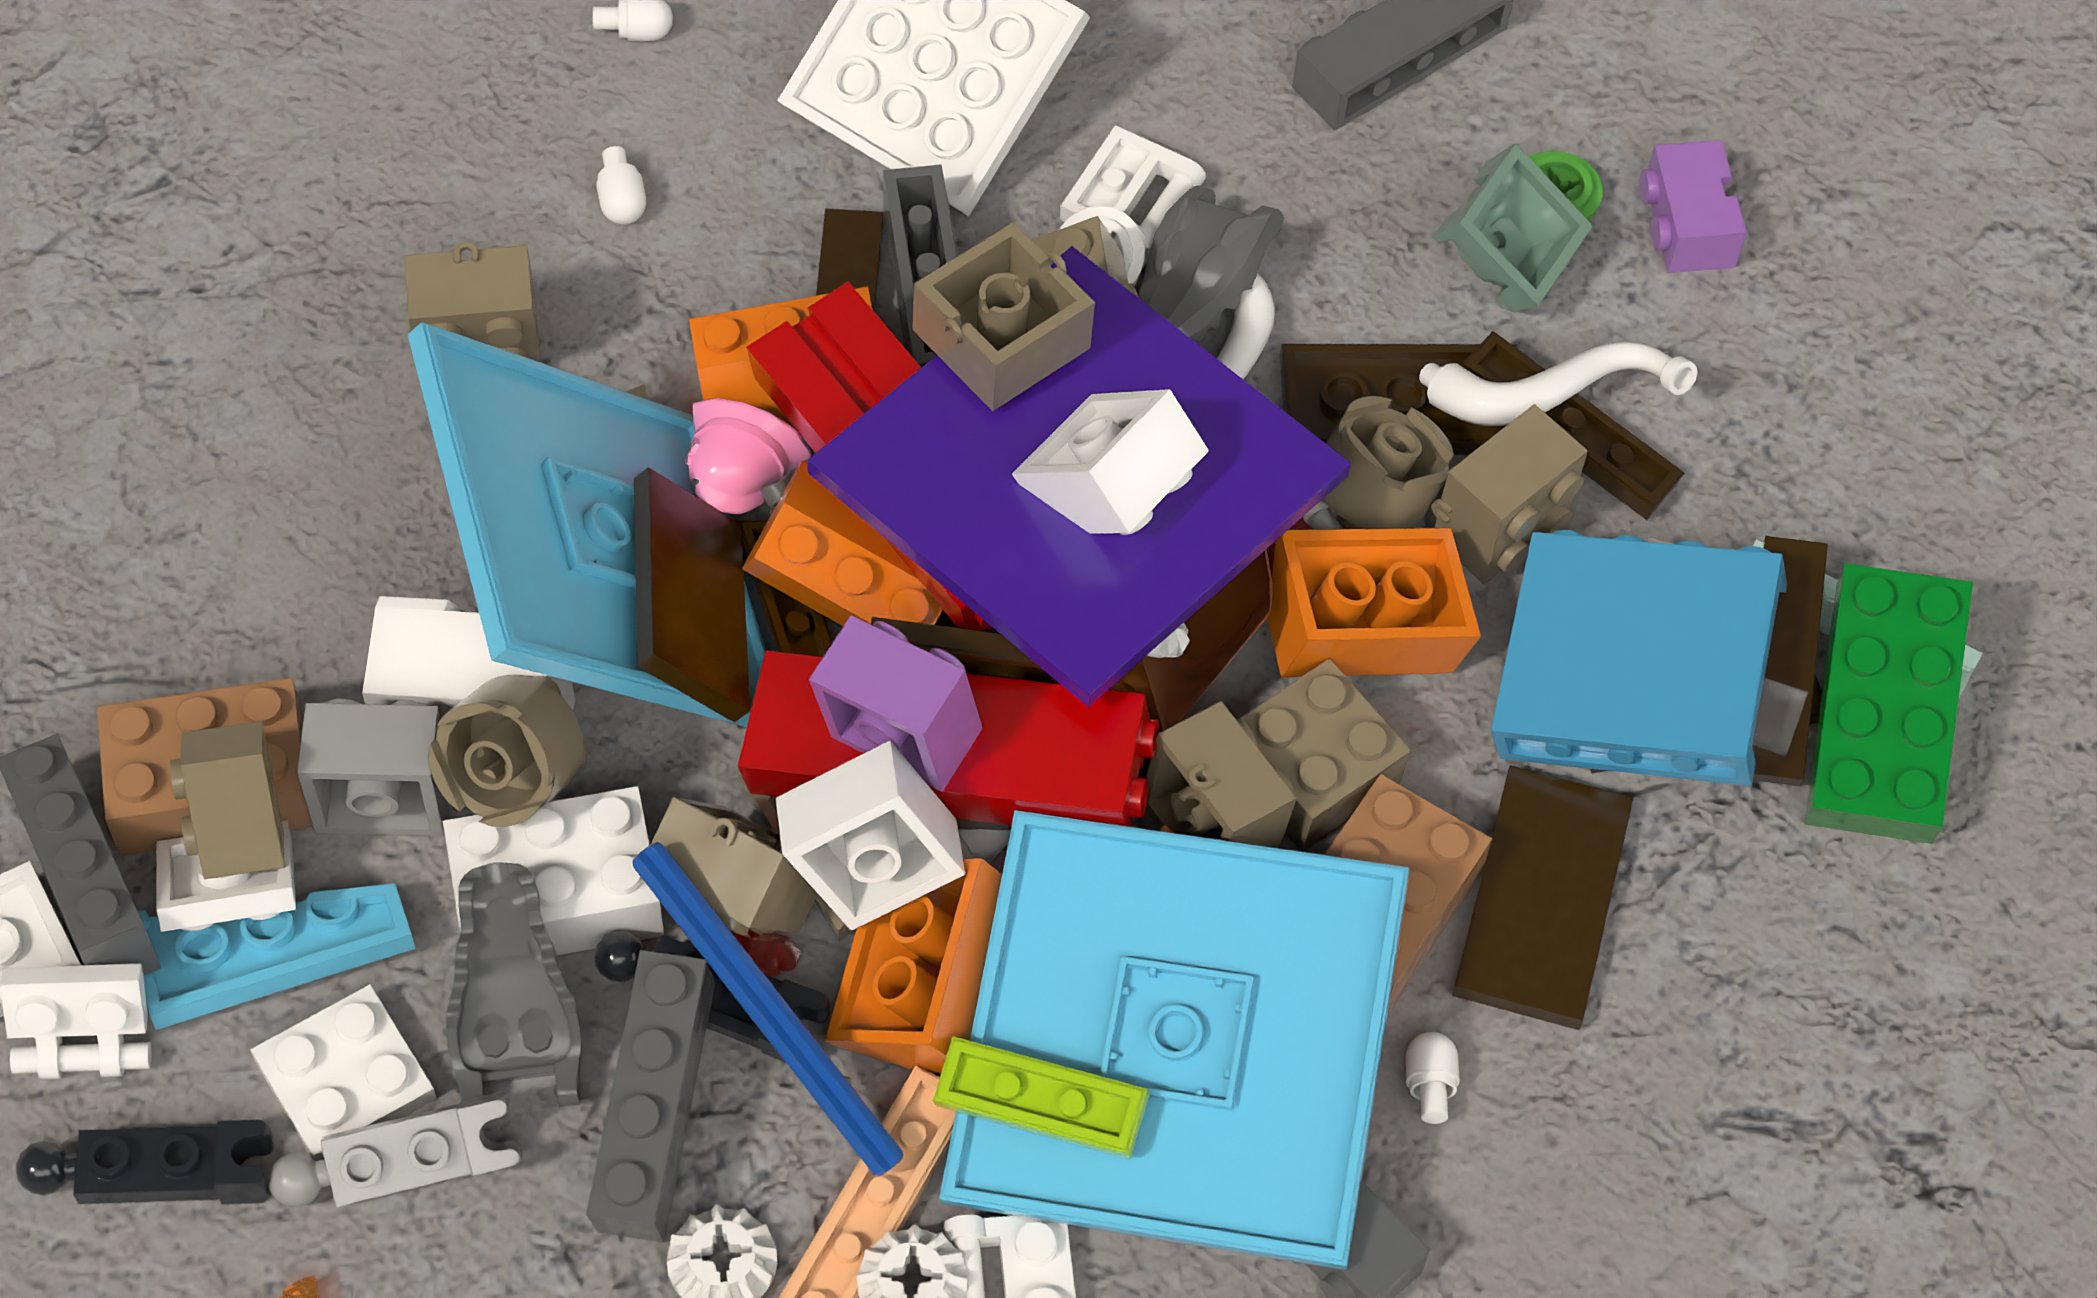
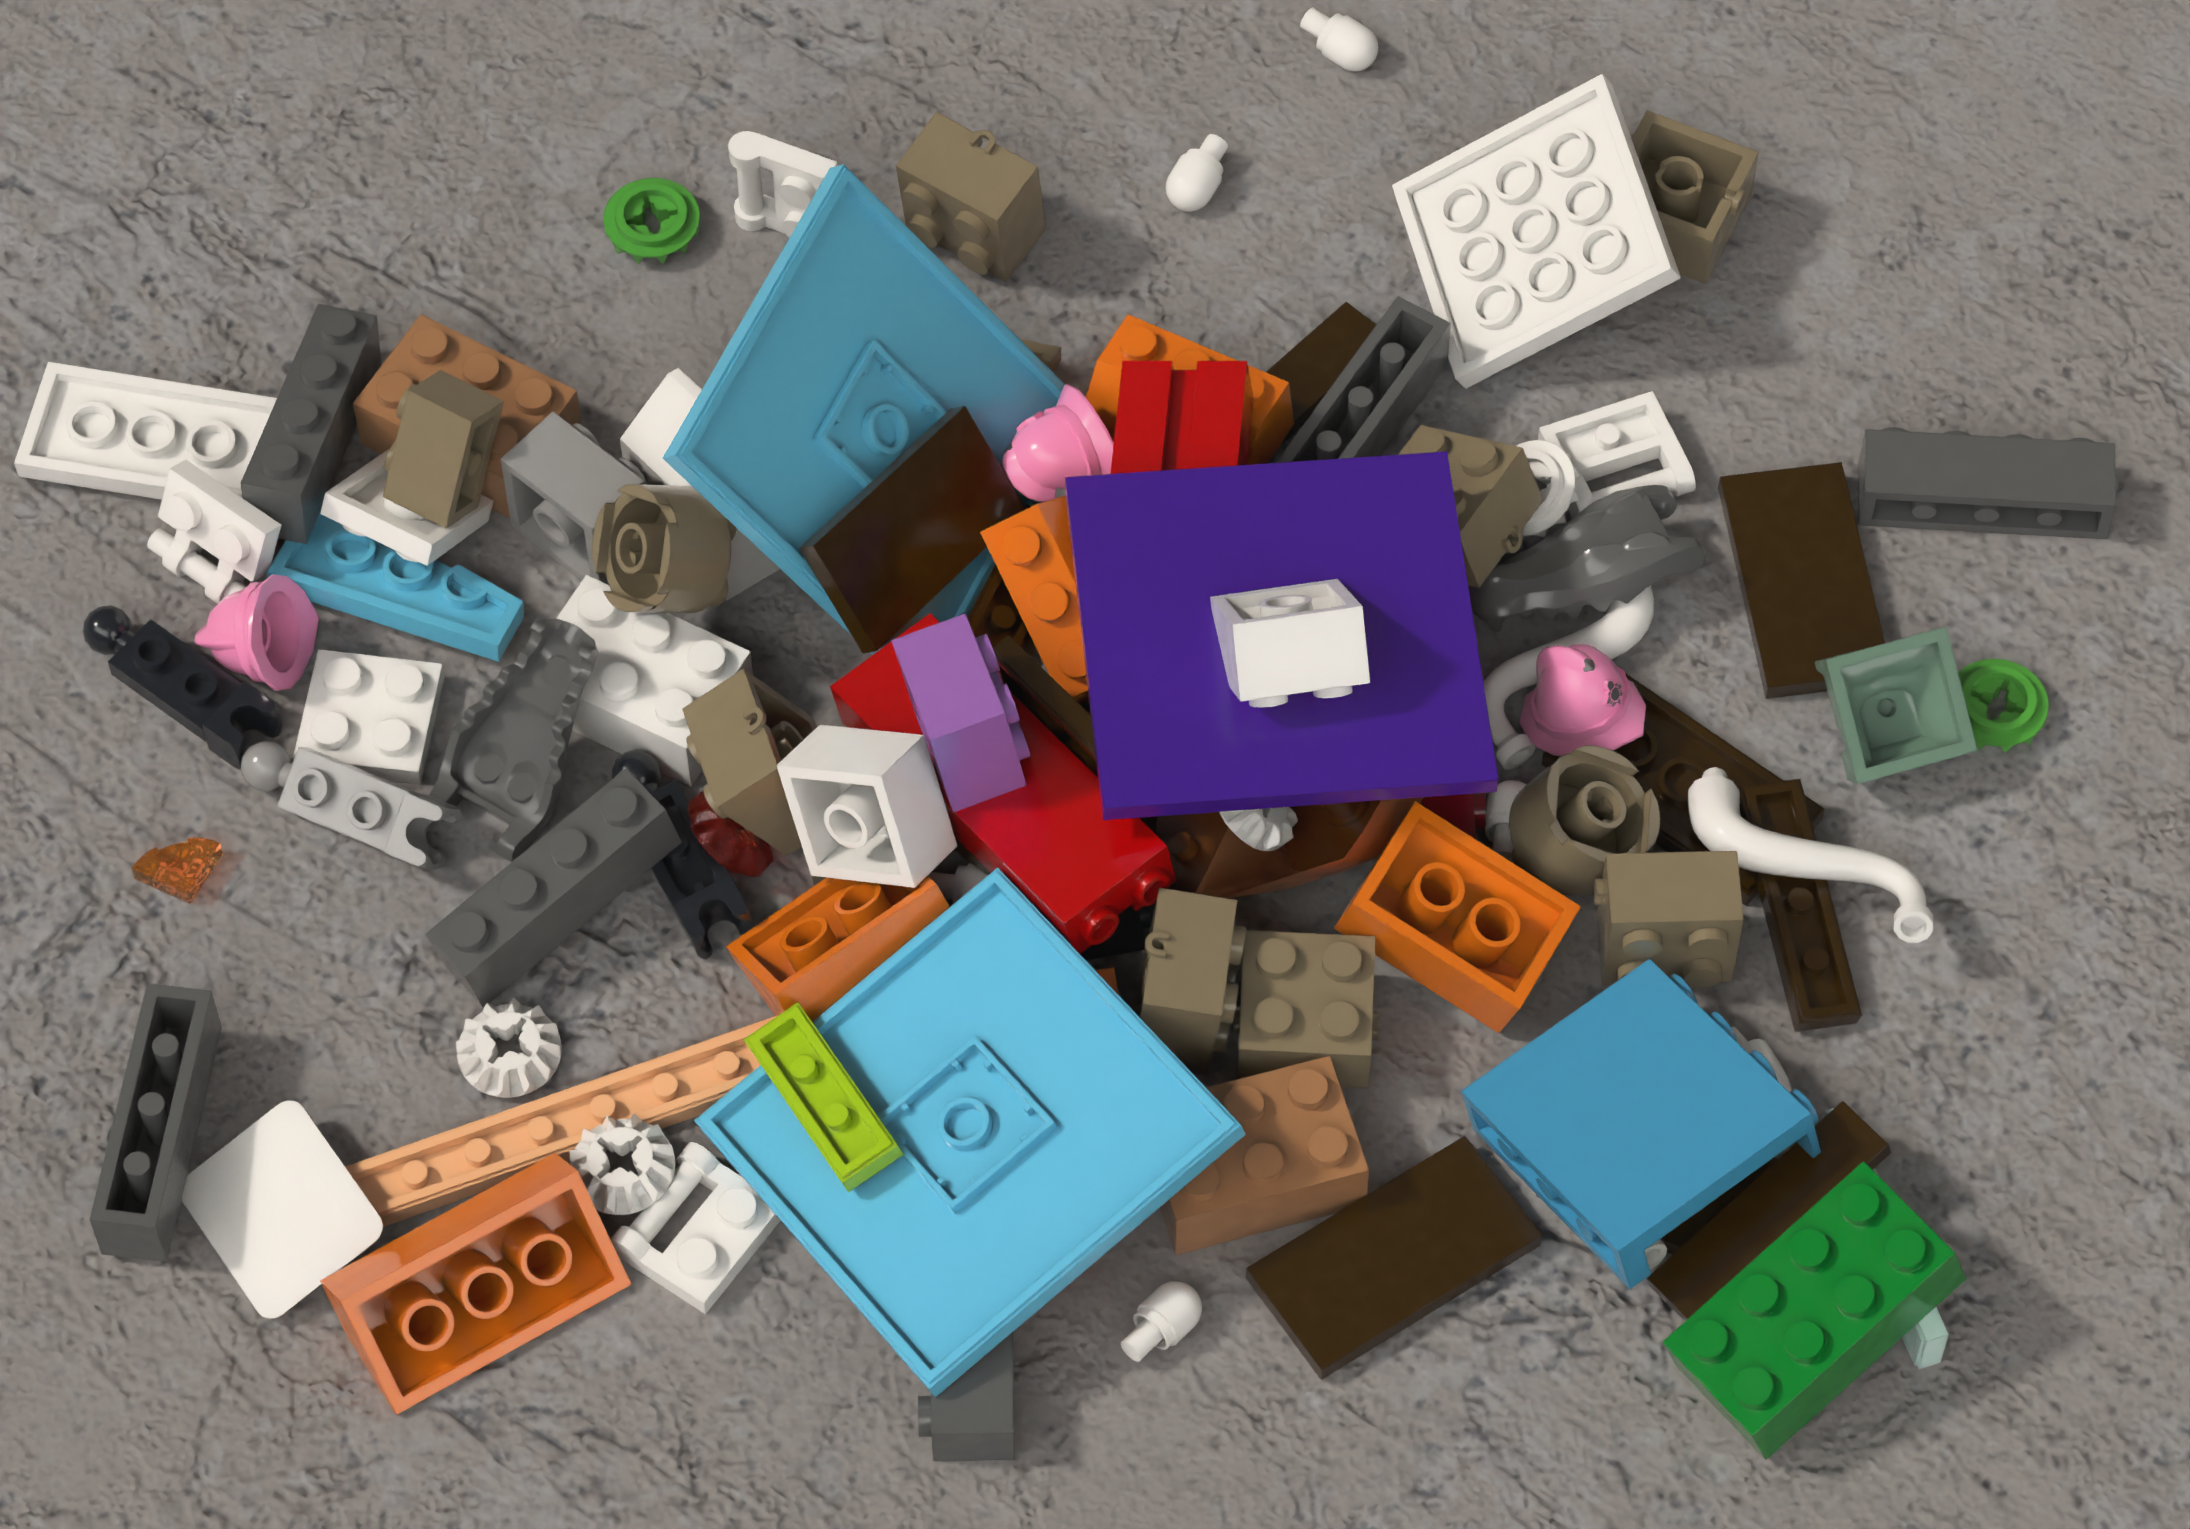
camera: 45 degrees right, 0 degrees up
(189, 1072) = (263, 632): none -> bright pink piece
(208, 484) = (670, 204): none -> bright green gear
(334, 400) = (795, 181): none -> white plate
(767, 1009) = (683, 882): blue axle -> none
(1003, 315) = (1310, 463): dark tan brick -> none
(1298, 377) = (1581, 702): none -> bright pink piece
(1339, 192) = (1799, 572): none -> dark brown tile
(1689, 208) = (2107, 789): medium lavender brick -> none
(1778, 716) = (1706, 1246): clear tile -> none

